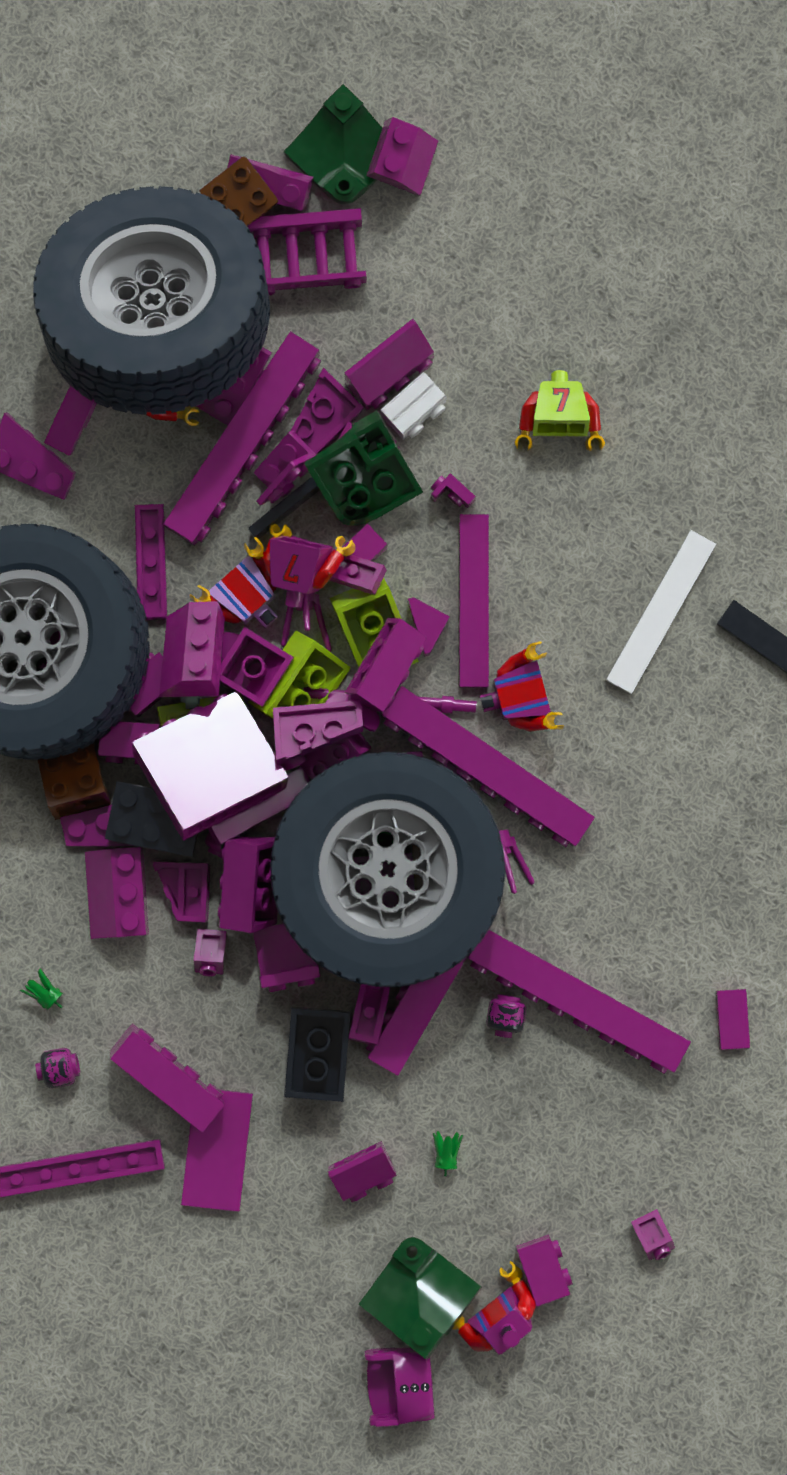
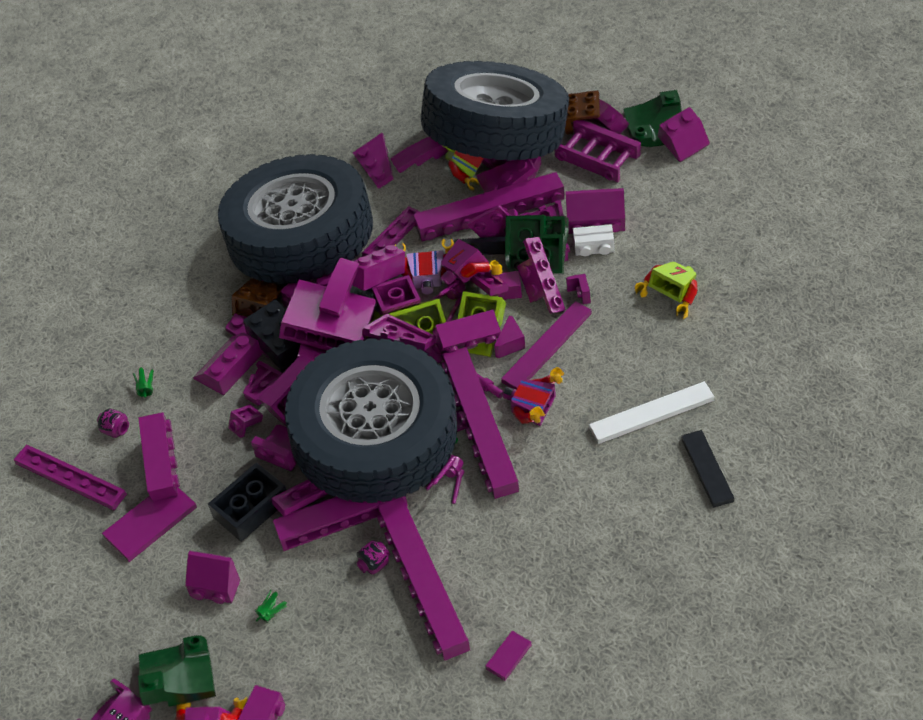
camera: 50 degrees right, 35 degrees down
(203, 727) = (338, 287): none -> magenta slope
(401, 518) = (539, 277): none -> magenta bracket

